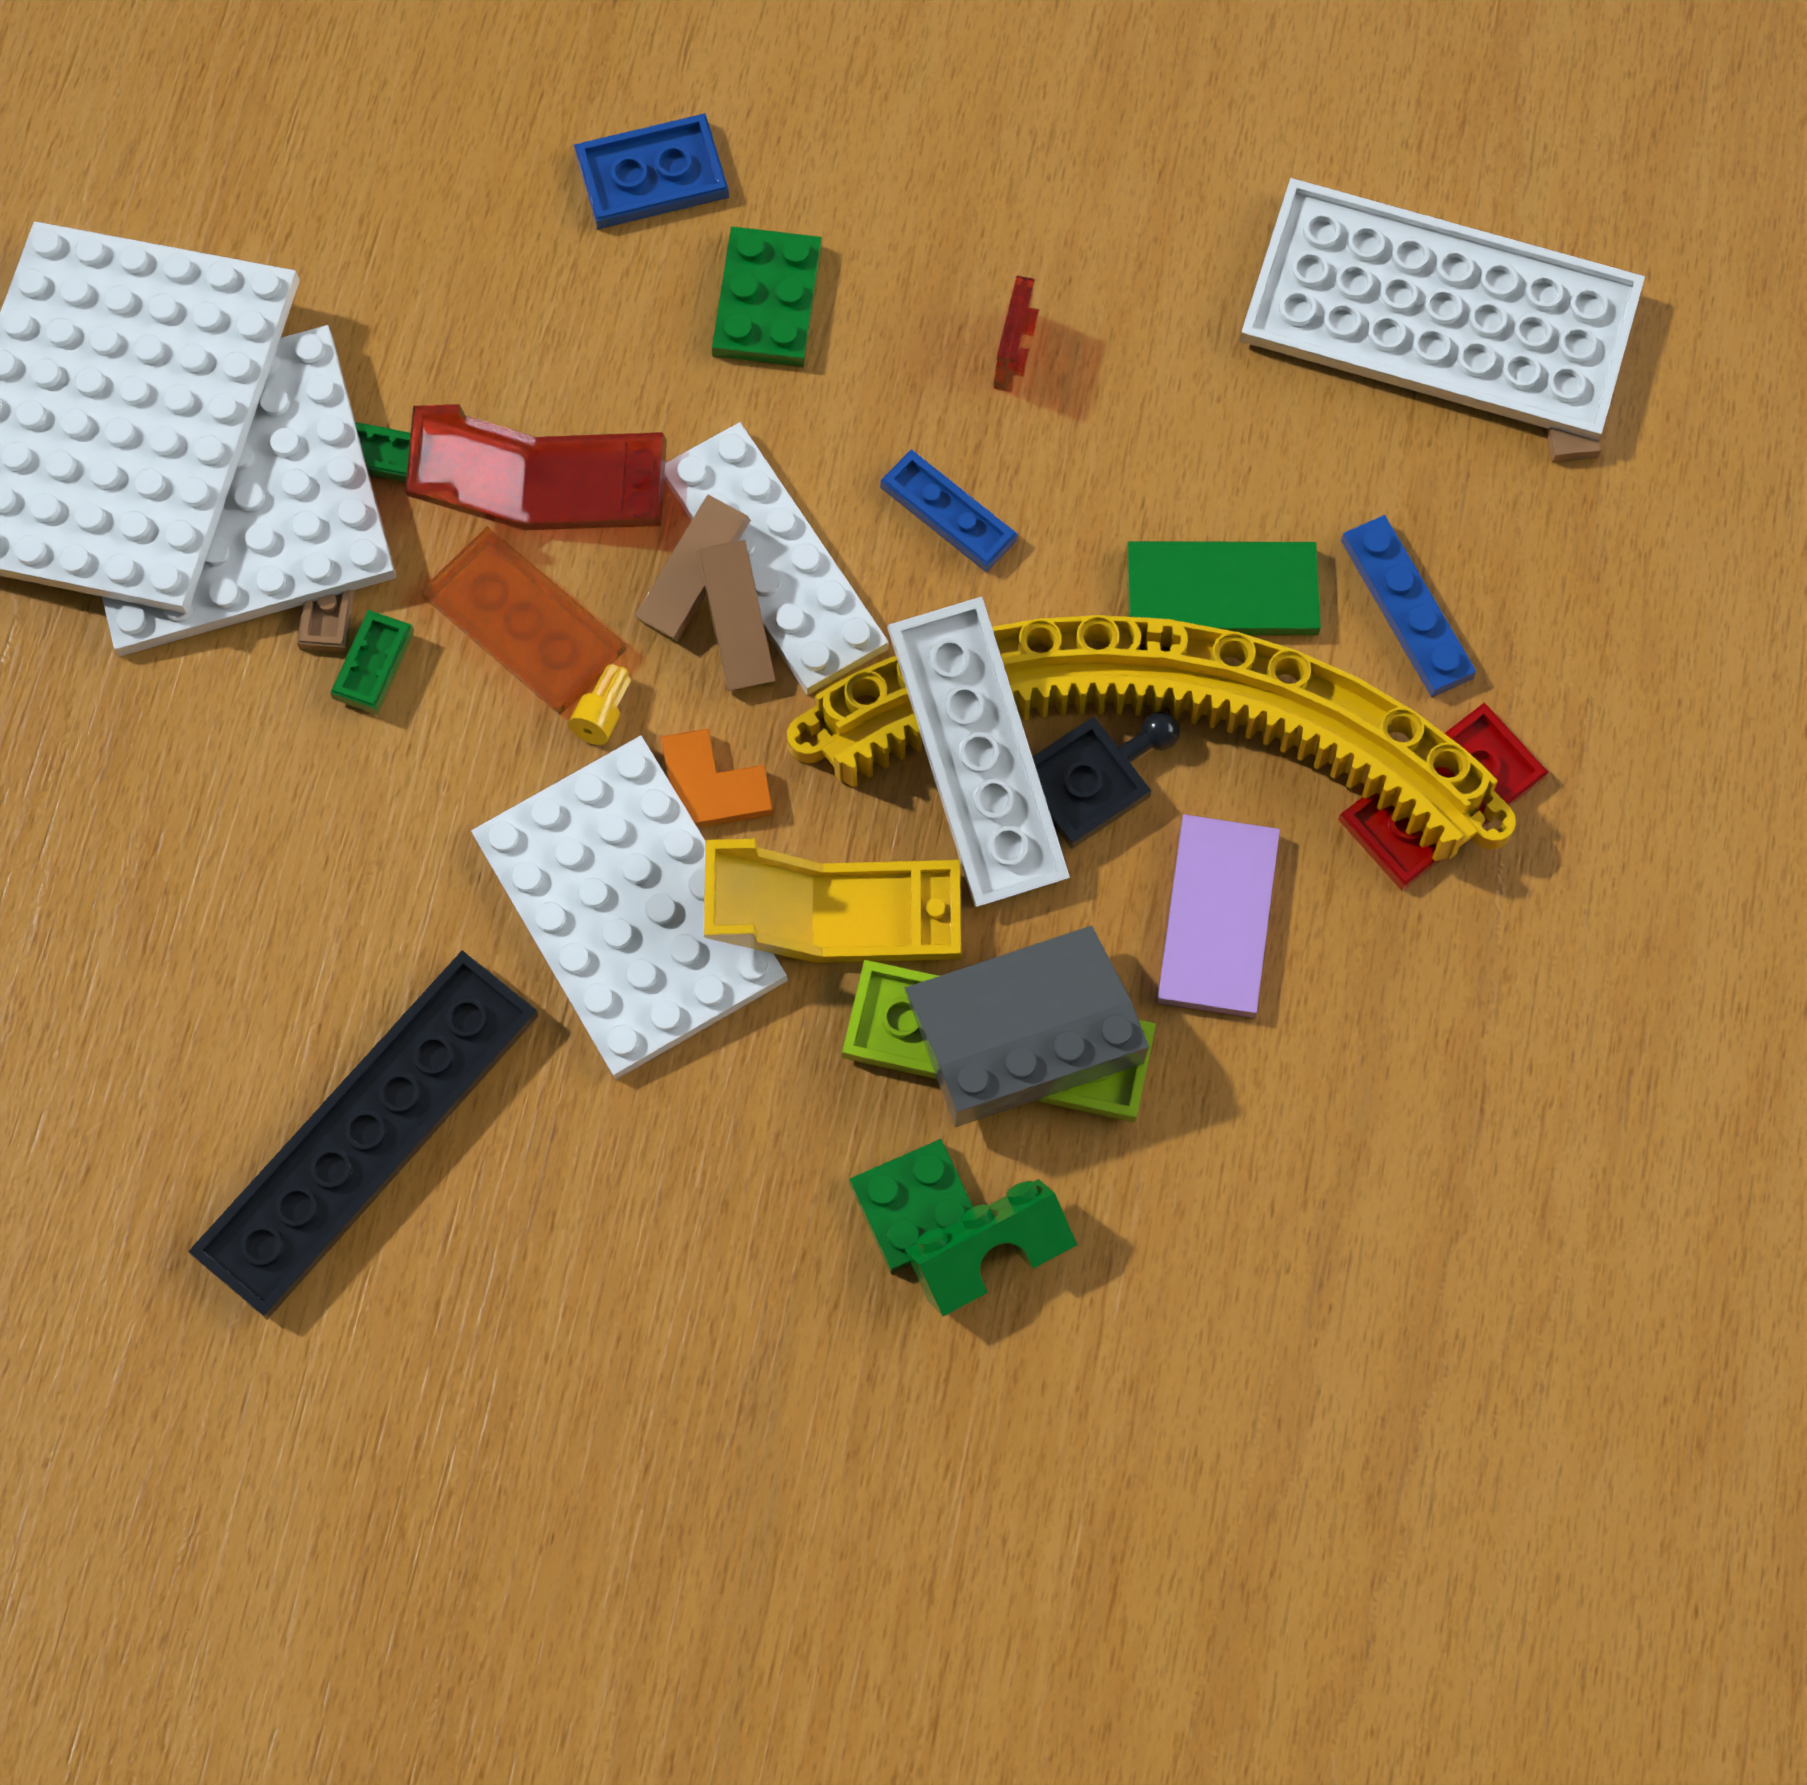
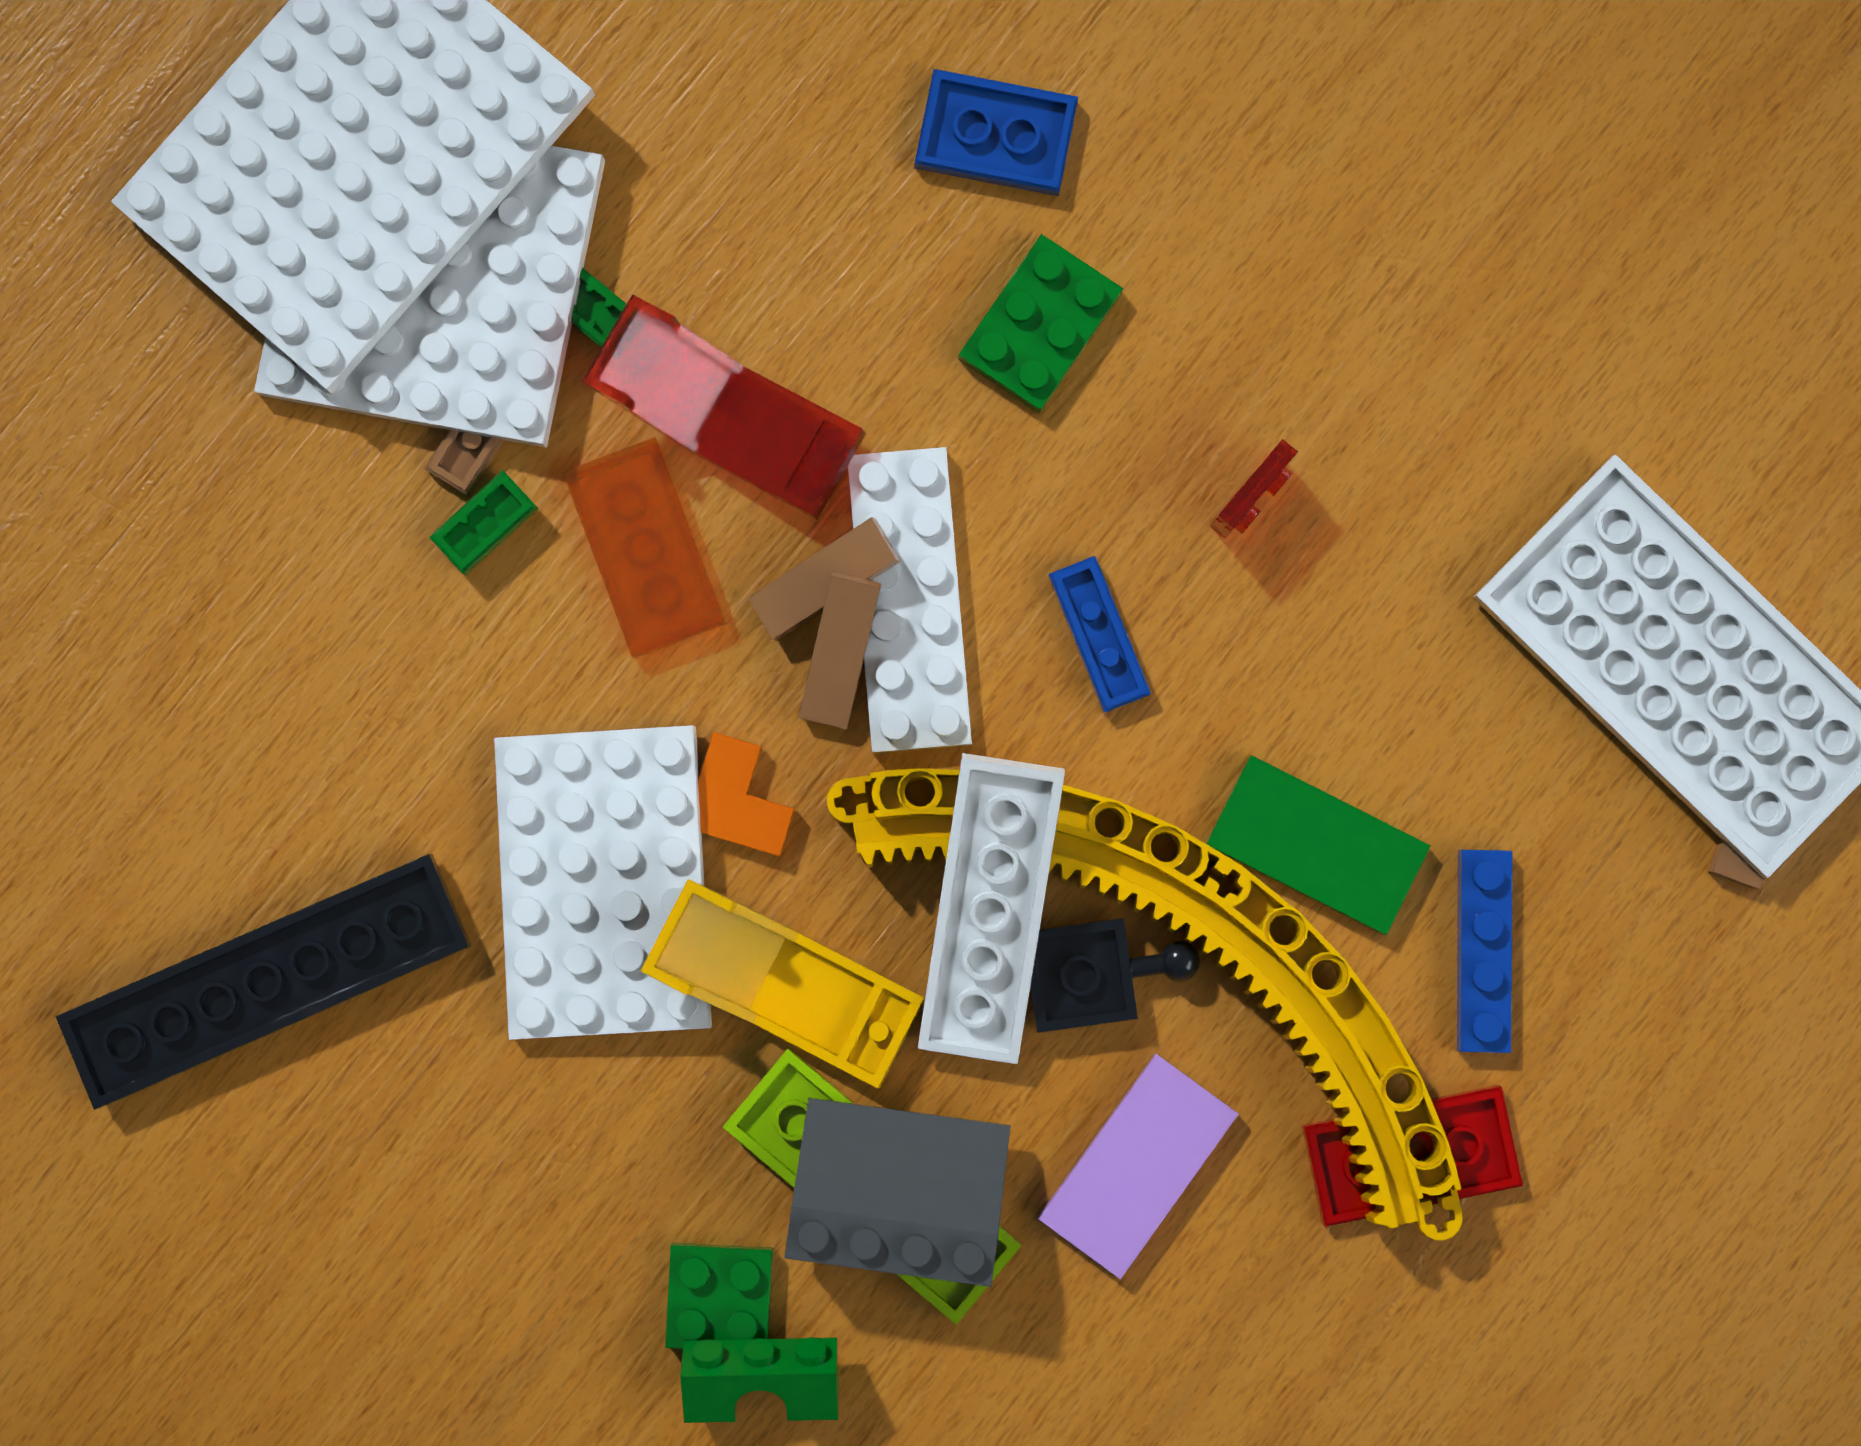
camera: 30 degrees right, 15 degrees up
(598, 712) = (663, 681): yellow piece -> none

